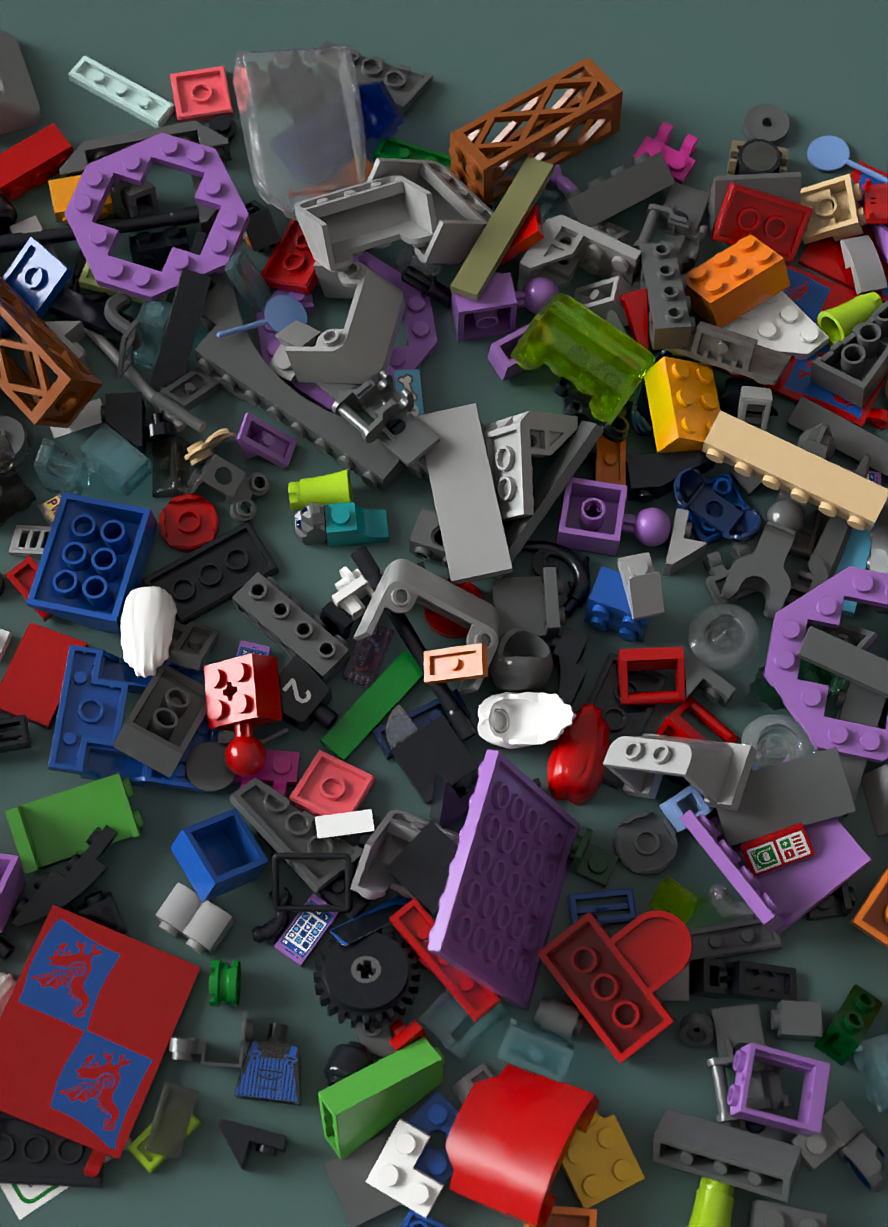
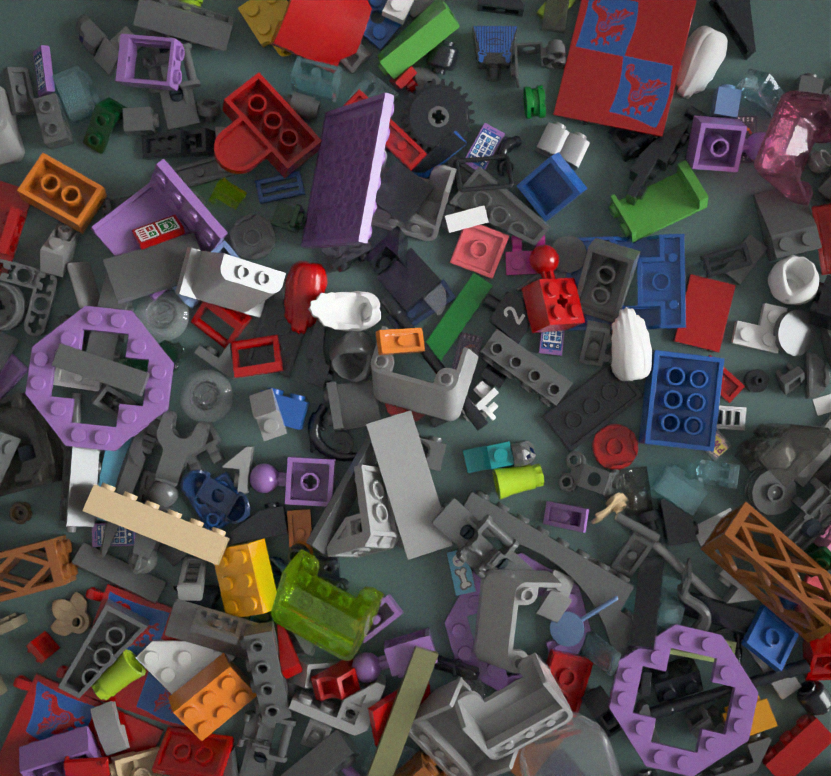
camera: 175 degrees right, 20 degrees up
(580, 278) = (336, 681): none -> red brick

